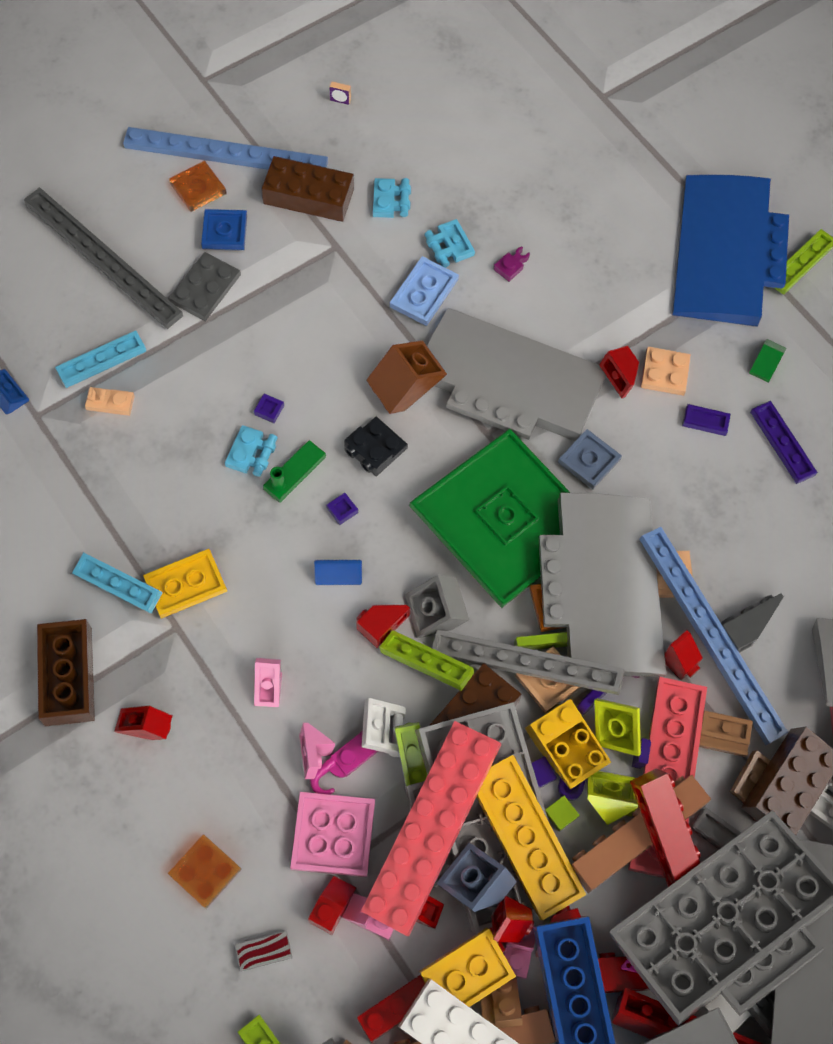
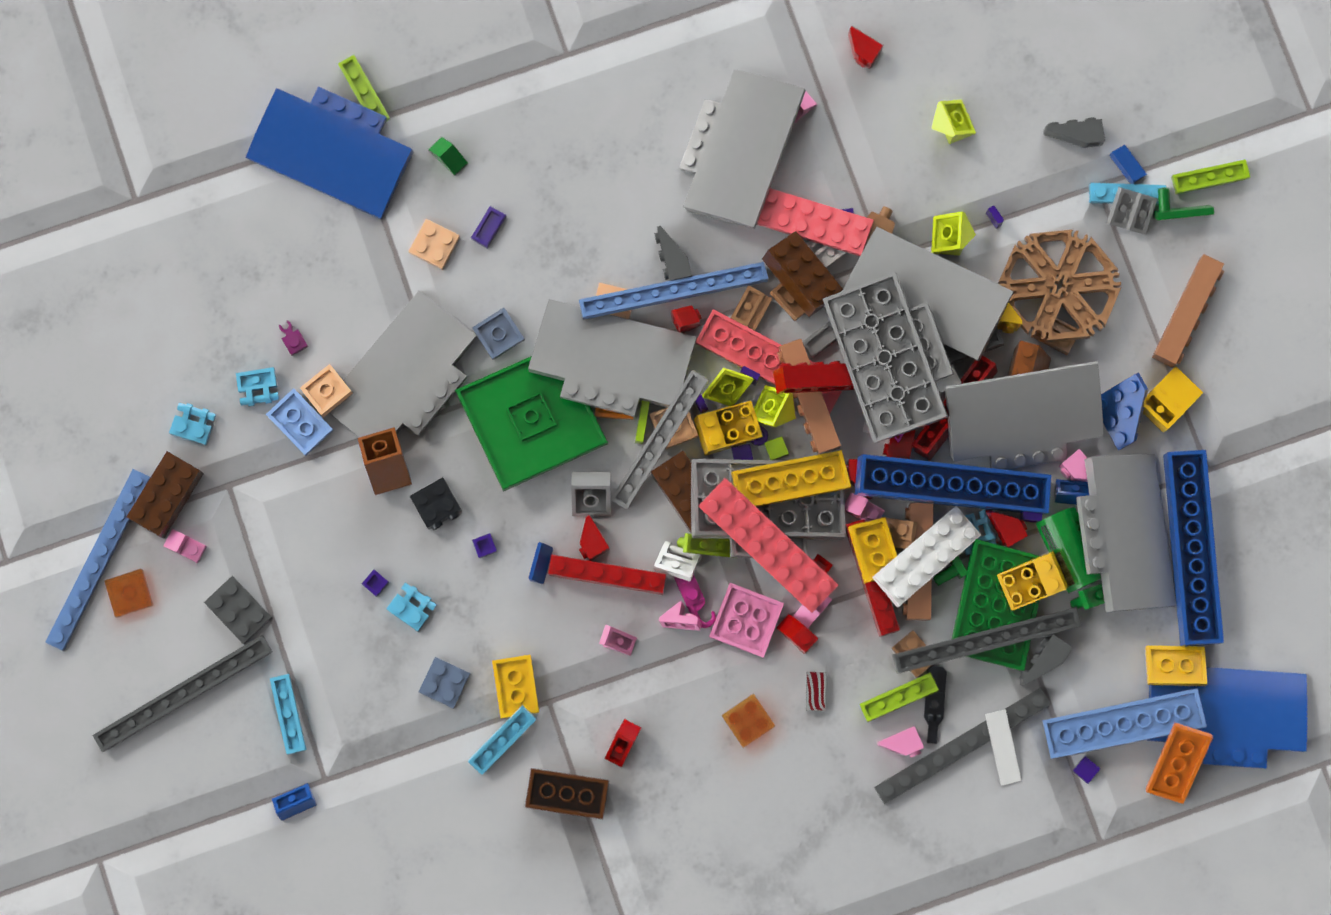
camera: 70 degrees left, 15 degrees up
(109, 401) = (329, 715): light nougat plate -> none
(172, 507) = (444, 682): none -> sand blue plate
(224, 229) = (185, 579): blue plate -> none
(260, 222) = (185, 546): none -> bright pink slope
(294, 471) = (439, 576): green piece -> none
(340, 93) = (64, 438): tile -> none
(344, 651) = (607, 574): none -> red brick
(427, 660) = (634, 514): lime plate -> none
(466, 305) = (326, 390): none -> light nougat plate
(477, 879) = (812, 525): sand blue slope -> none
(511, 921) = (846, 509): red slope -> none
(621, 369) = (426, 281): red slope -> none
(783, 442) = (525, 172): dark purple tile -> none

